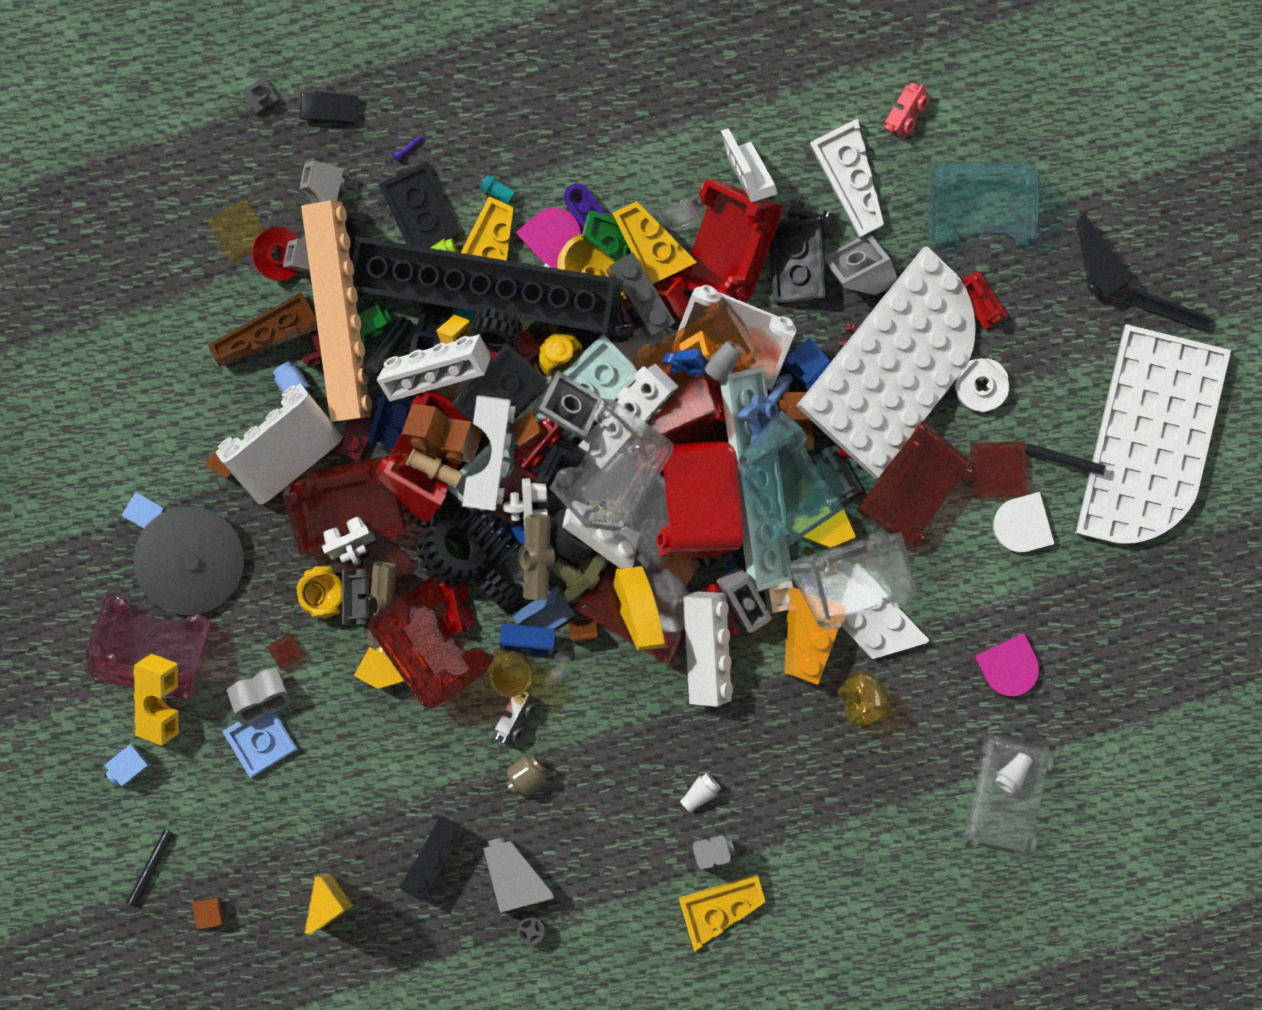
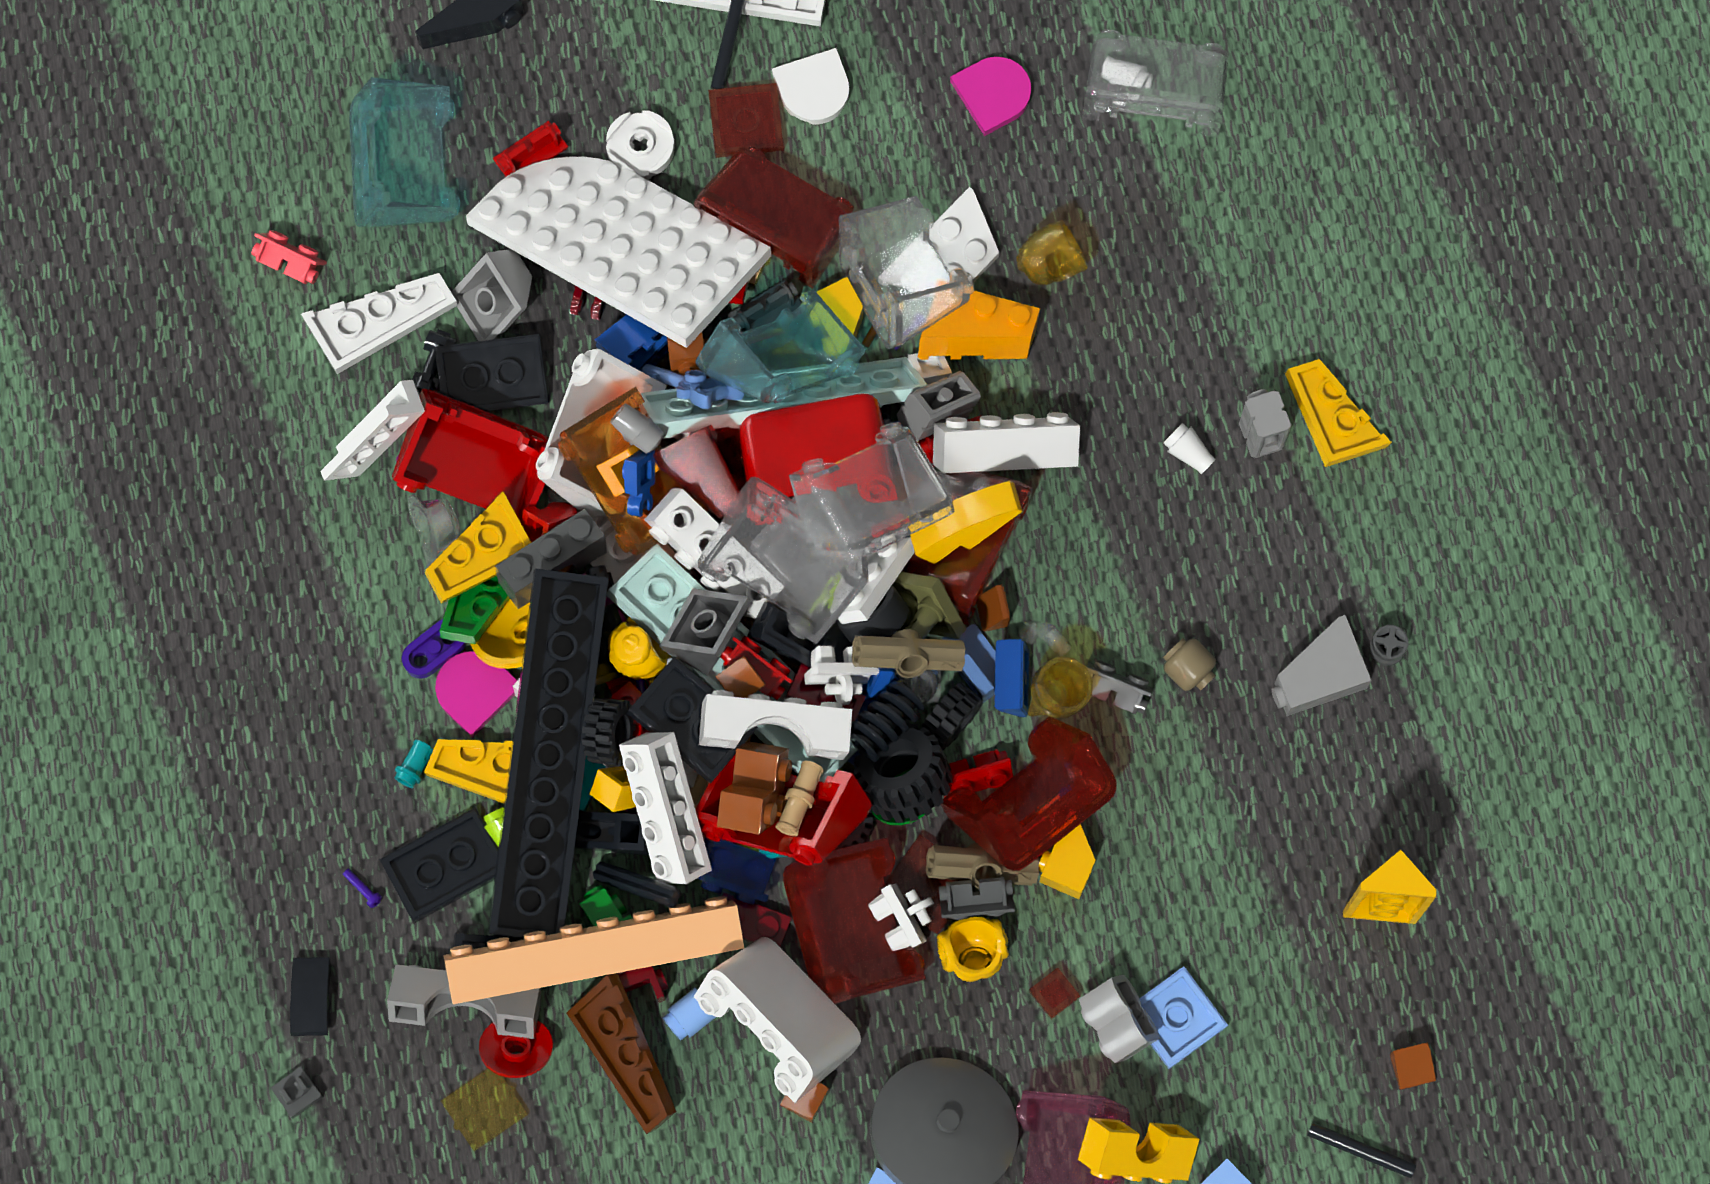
camera: 90 degrees left, 10 degrees down
(432, 858) = (1310, 775): black brick -> none
(649, 535) = (869, 497): none -> clear windscreen

